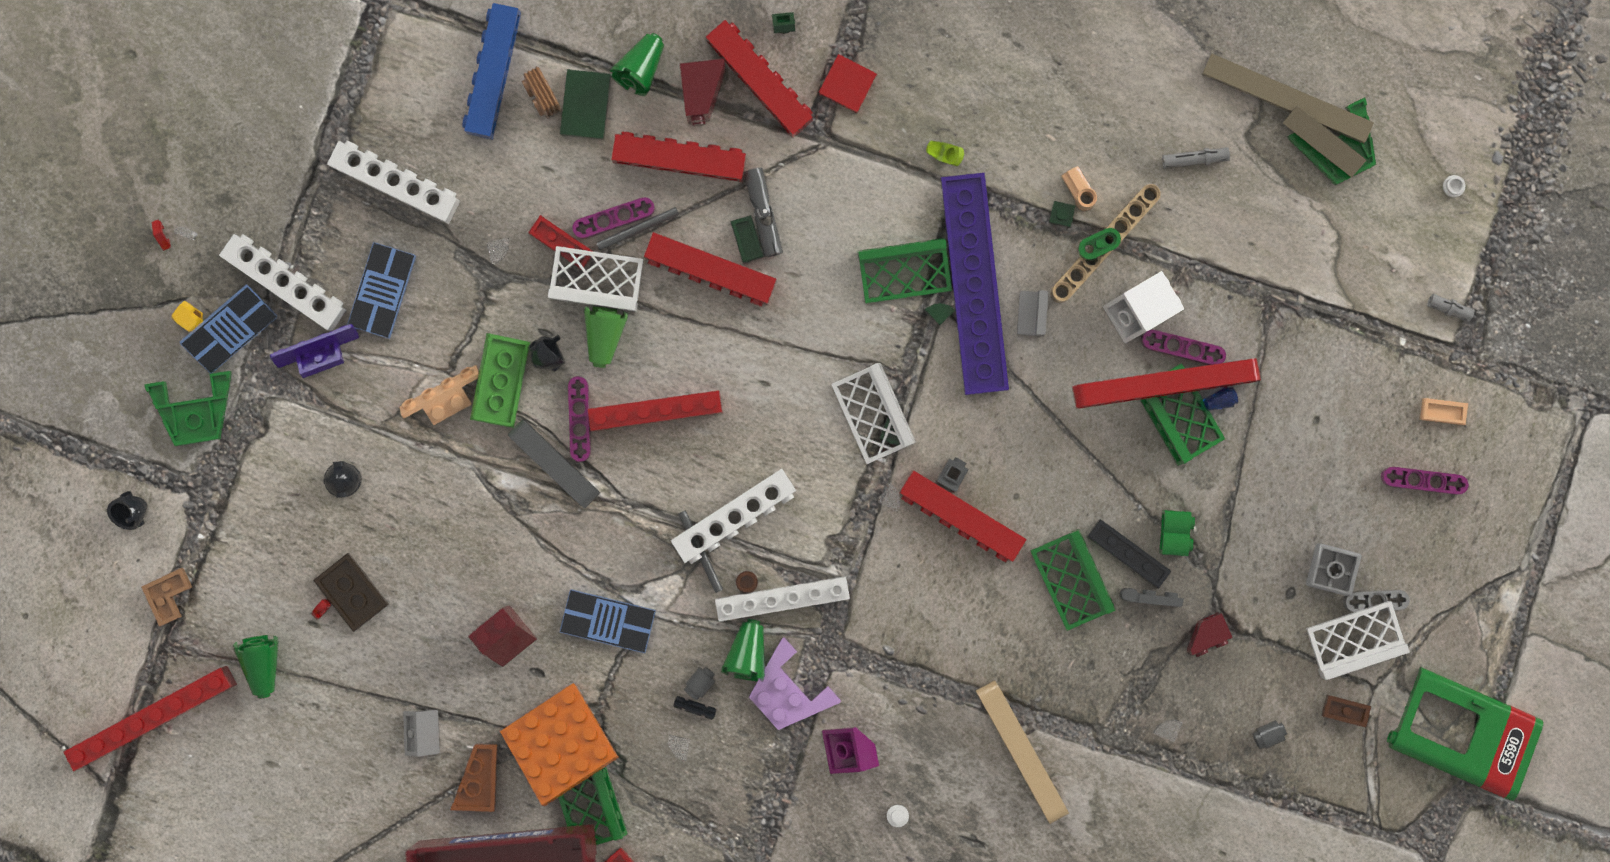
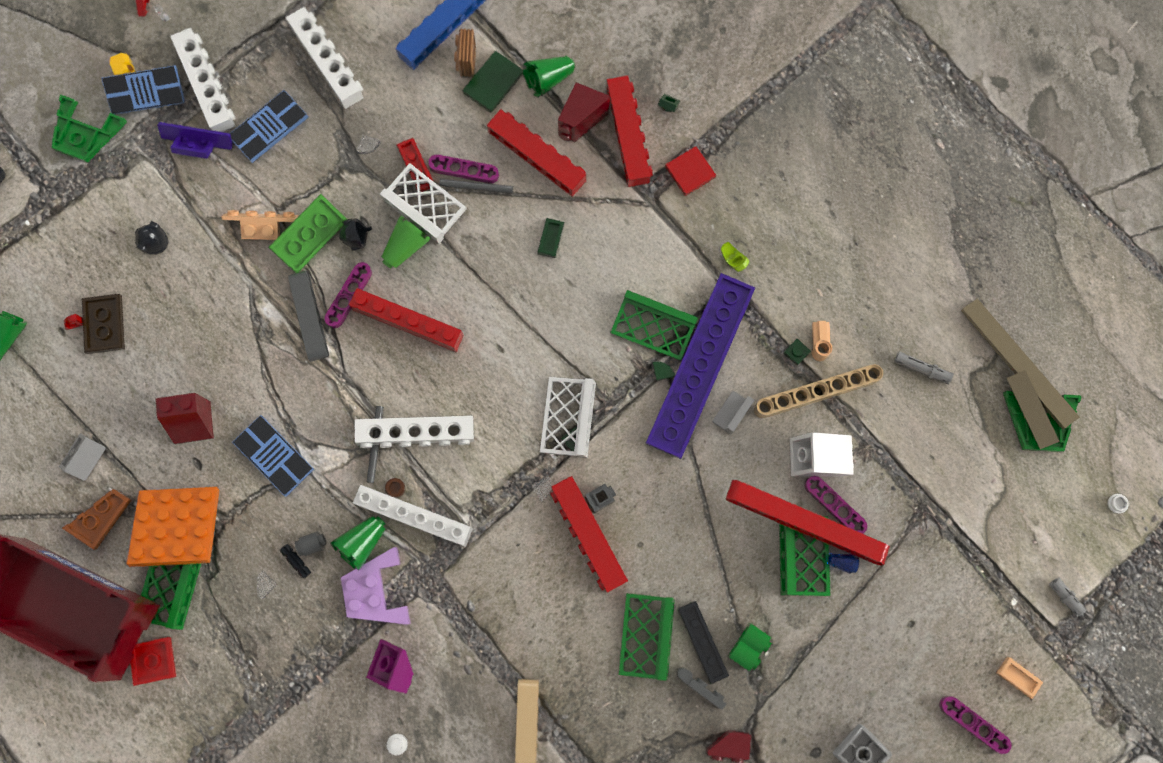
camera: 30 degrees right, 10 degrees down
(709, 268) = (511, 242): red brick -> none
(760, 198) = (577, 213): dark grey piece -> none
(1098, 243) = (813, 386): green plate -> none

